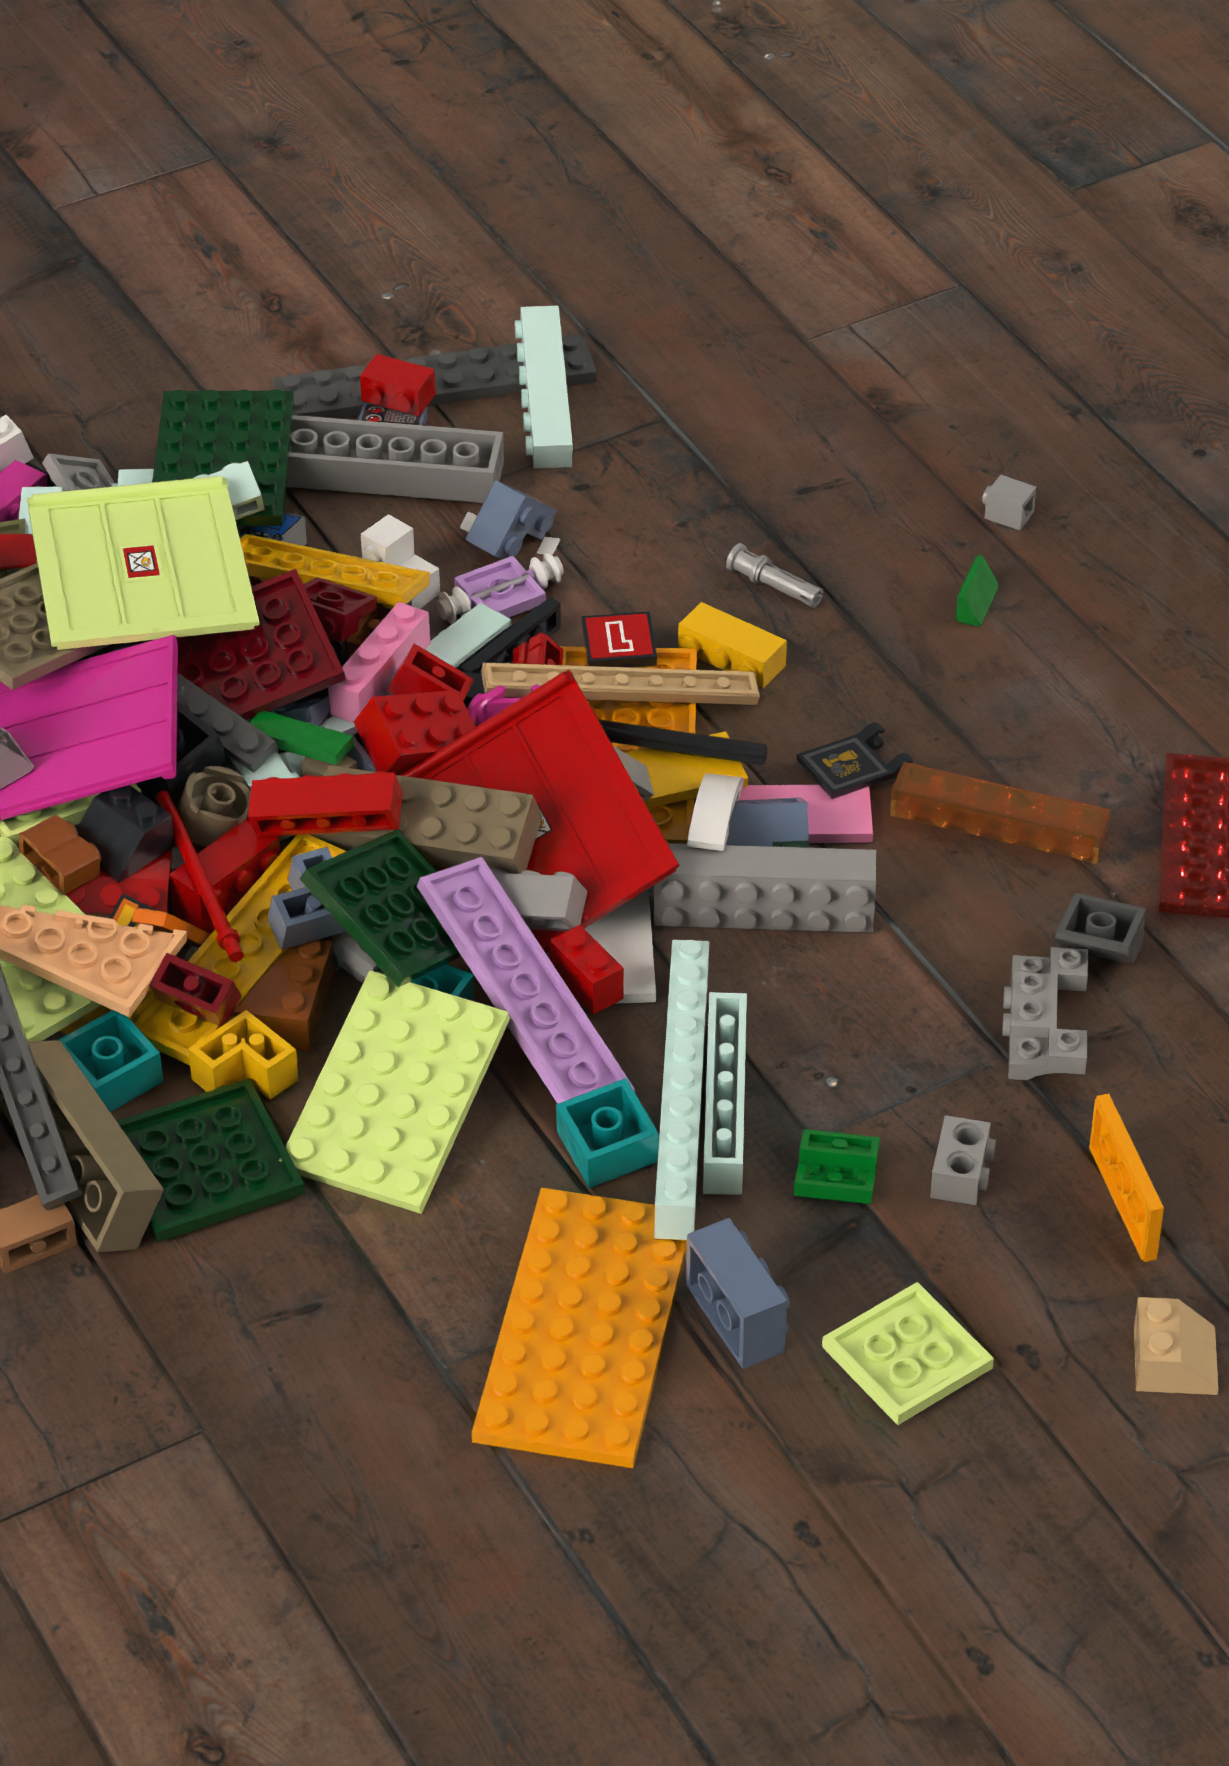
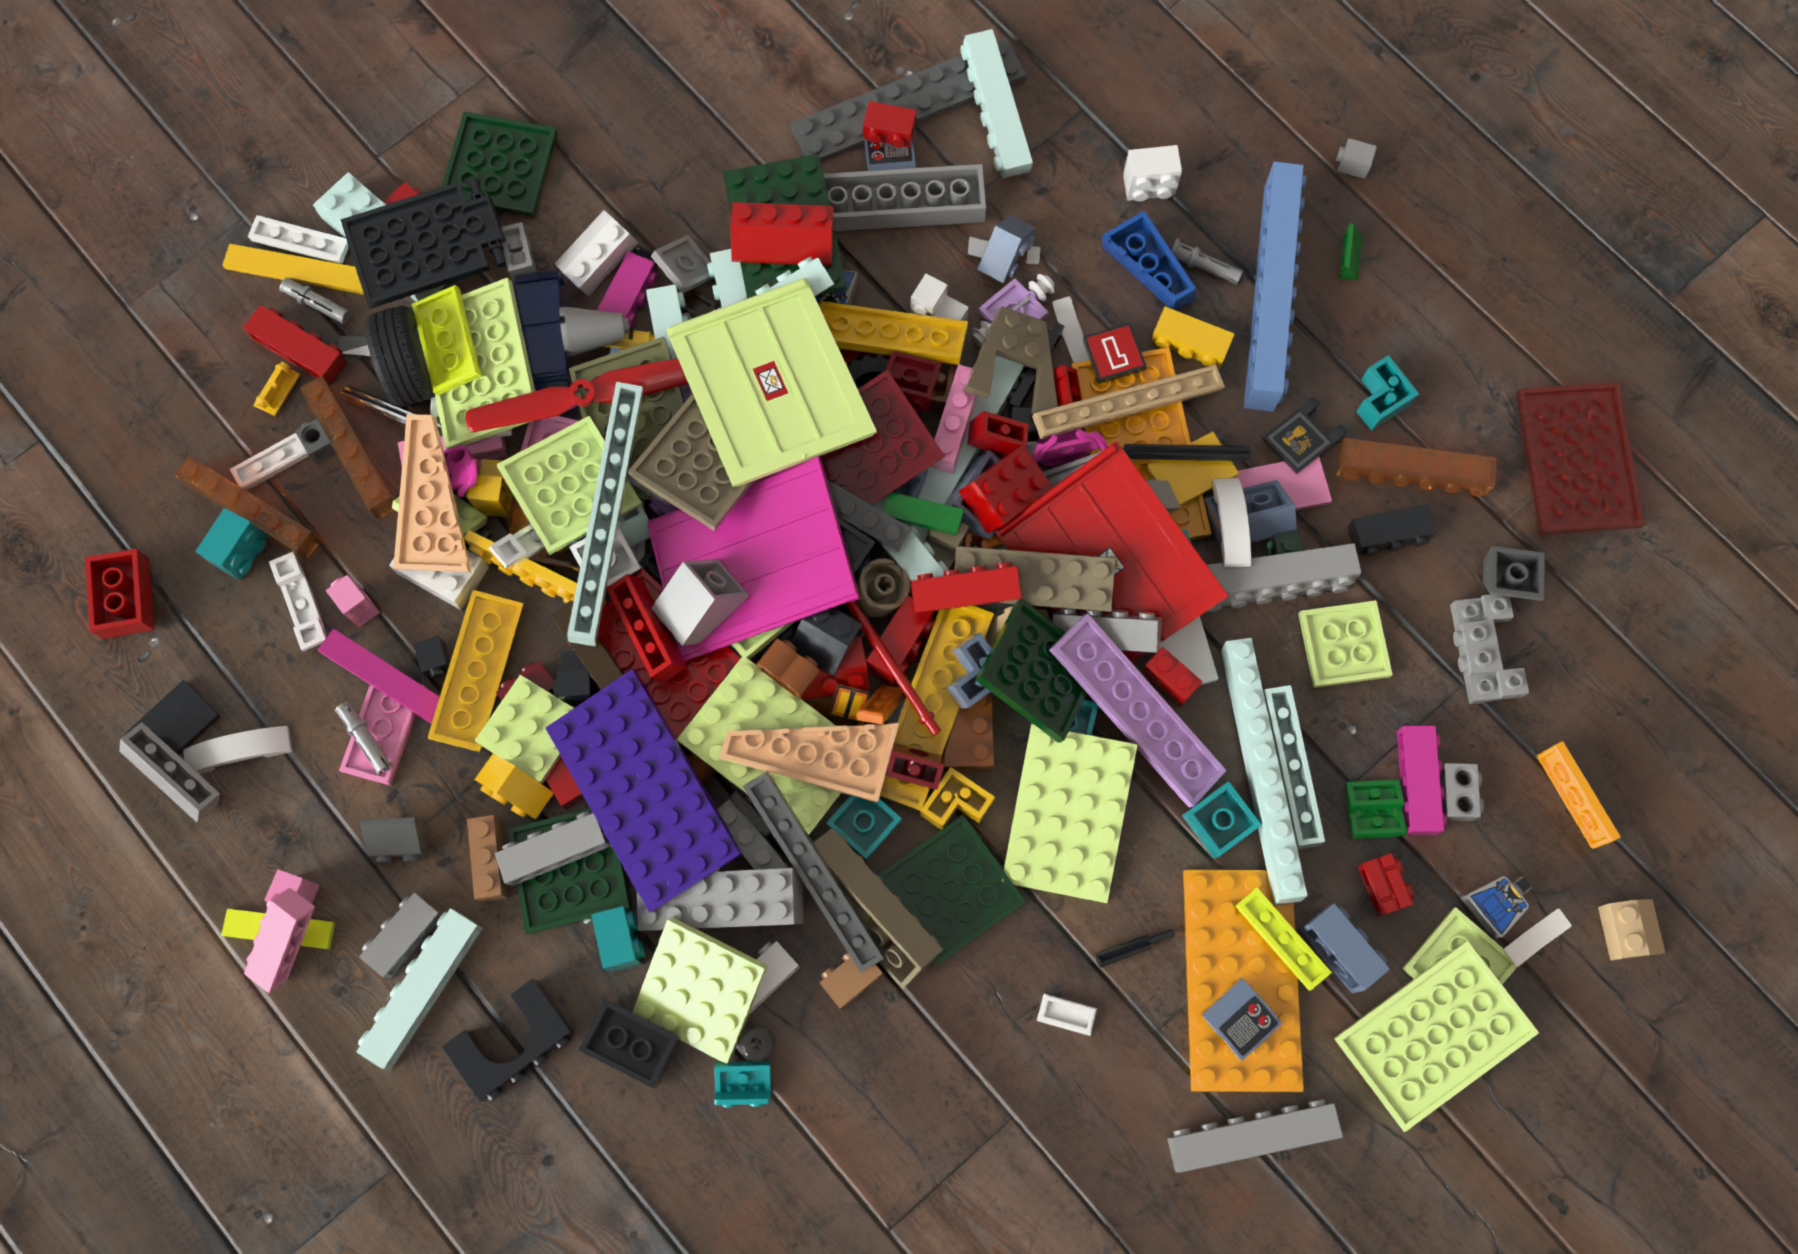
camera: 10 degrees left, 30 degrees up
(203, 440) = (781, 233): none -> red slope
(320, 1324) = (1066, 1014): none -> white tile
(435, 1263) = (1130, 948): none -> black axle
(483, 593) = (1022, 341): none -> dark tan wing
(543, 1496) = (1254, 1137): none -> light grey brick
(564, 1349) = (1241, 1019): none -> slope
(572, 610) = (1072, 331): none -> white sticker
(652, 1269) = (1283, 939): none -> neon yellow plate
(695, 557) = (1149, 259): none -> blue wedge
(726, 474) = (1152, 173): none -> white brick
(824, 1244) = (1386, 884): none -> red brick
(842, 1415) = (1436, 1035): none -> yellowish green plate
(845, 982) = (1345, 644): none -> yellowish green plate
(854, 605) = (1275, 287): none -> medium blue brick
(908, 1140) = (1421, 780): none -> dark pink brick
(946, 872) = (1392, 530): none -> black brick
(977, 732) = (1390, 393): none -> teal brick
(981, 1289) = (1498, 904): none -> torso
(1033, 1343) = (1537, 937): none -> white sticker

